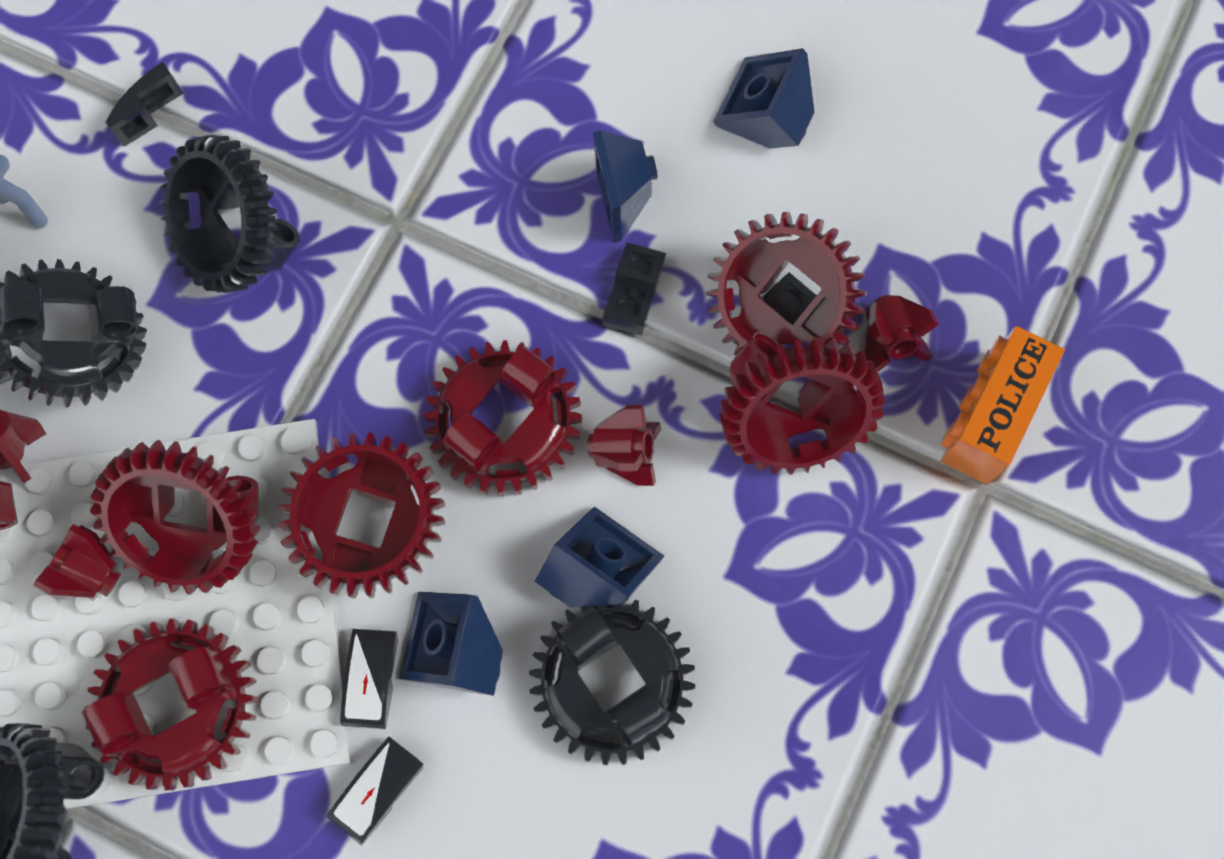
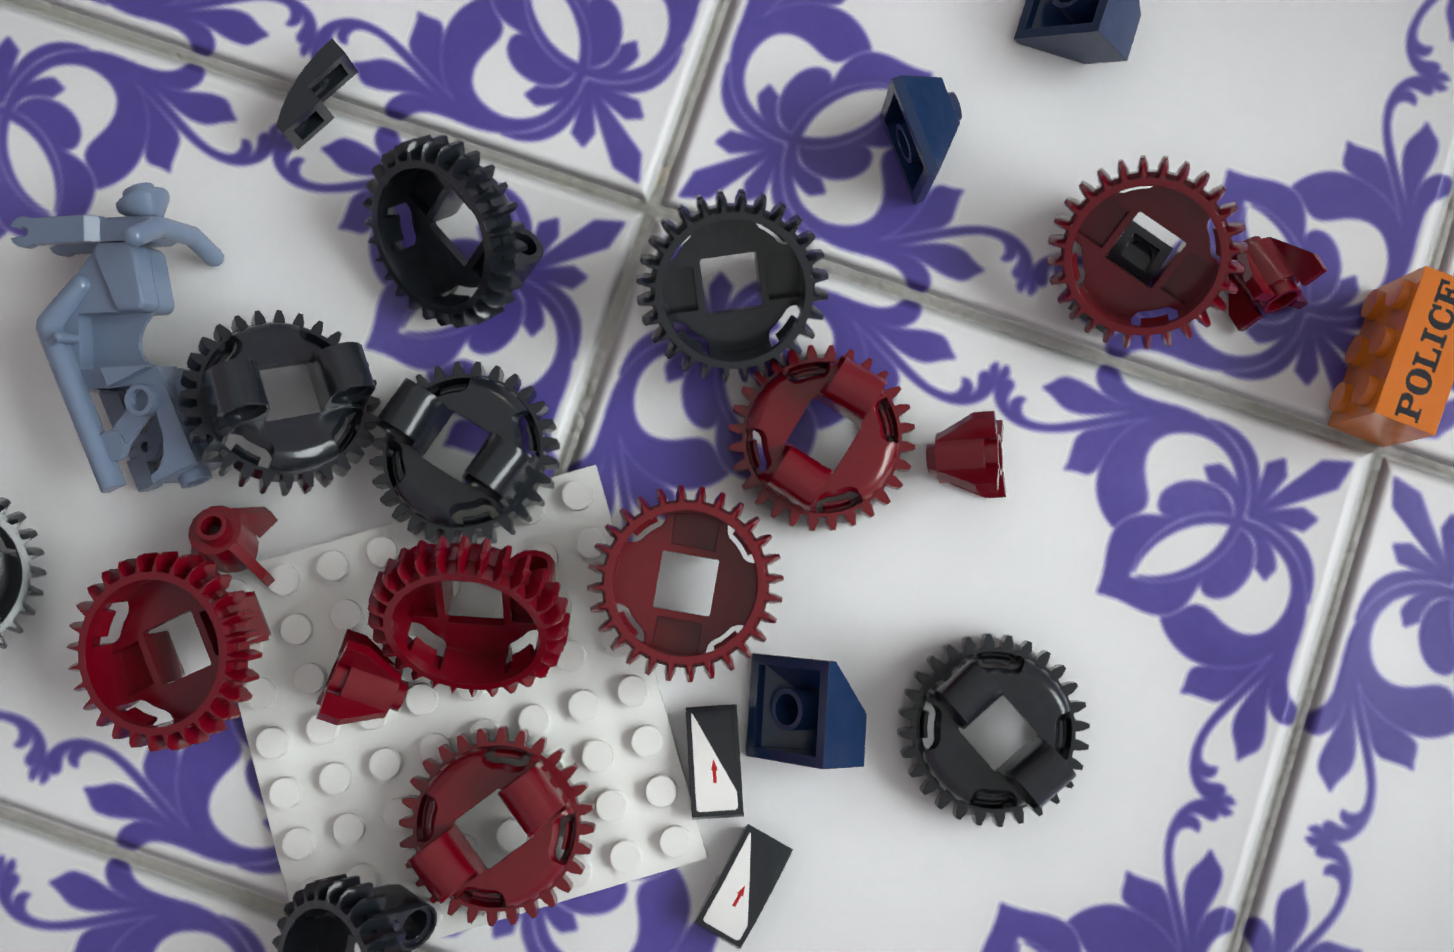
camera: 15 degrees left, 10 degrees up
(222, 406) = (496, 476): none -> black piece
(400, 280) = (738, 335): none -> black piece
(597, 563) = (960, 599): dark blue slope -> none
(634, 289) = (949, 260): black slope -> none
(827, 402) = (1197, 371): dark red piece -> none

